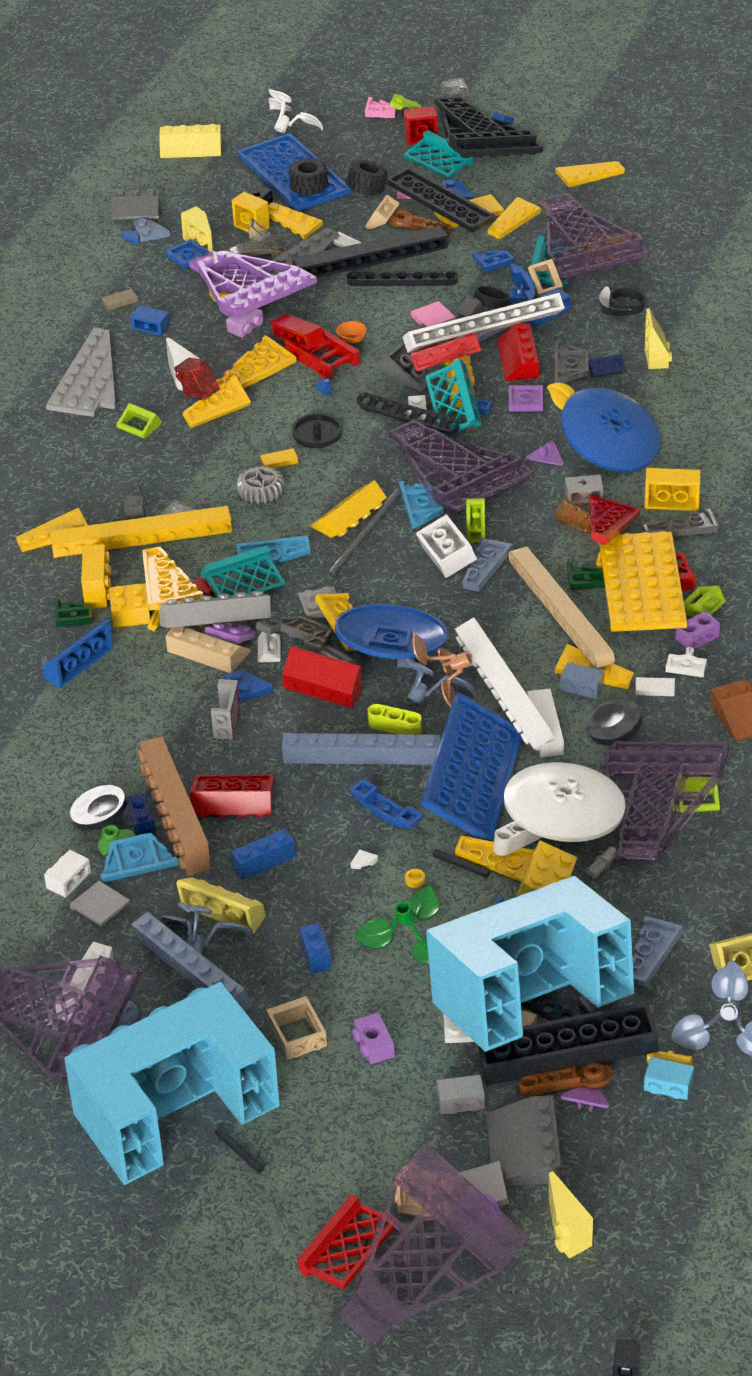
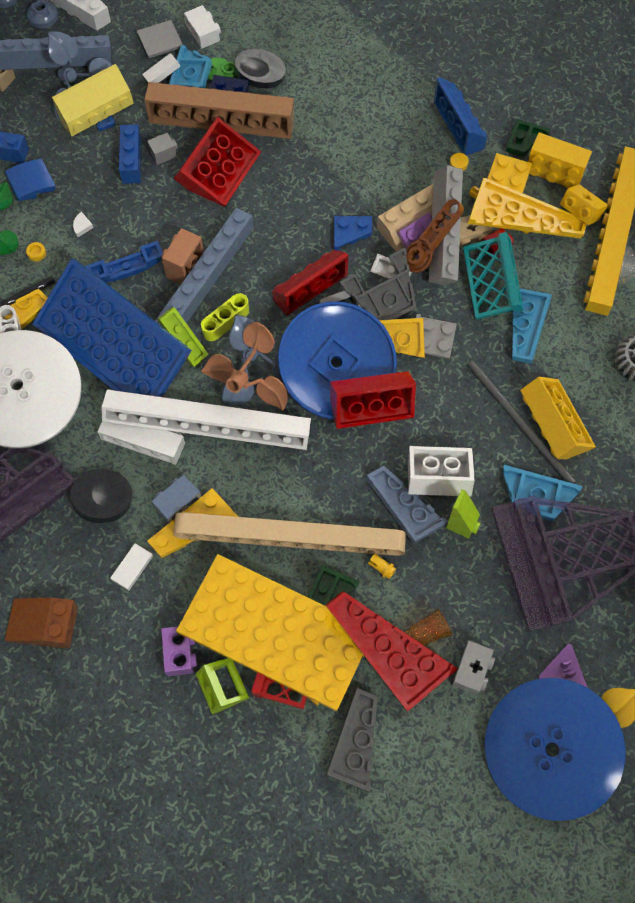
camera: 115 degrees right, 25 degrees up
(124, 646) = (459, 161): none -> yellow tile
(130, 552) = (583, 204): none -> yellow brick
(144, 878) = (161, 69): none -> white tile
(225, 718) = (311, 195): light grey panel -> none
(237, 605) = (432, 237): none -> dark orange beam
(239, 835) = (162, 148): none -> light grey brick
(340, 917) = (29, 179): none -> blue slope
(357, 760) = (182, 255): none -> nougat brick
(408, 601) = (373, 399): none -> red slope
(433, 727) = (175, 324): none -> lime plate
(544, 556) = (386, 569): none -> yellow pin
(672, 489) = (412, 757): yellow brick -> none
(686, 664) = (139, 612): white plate -> none

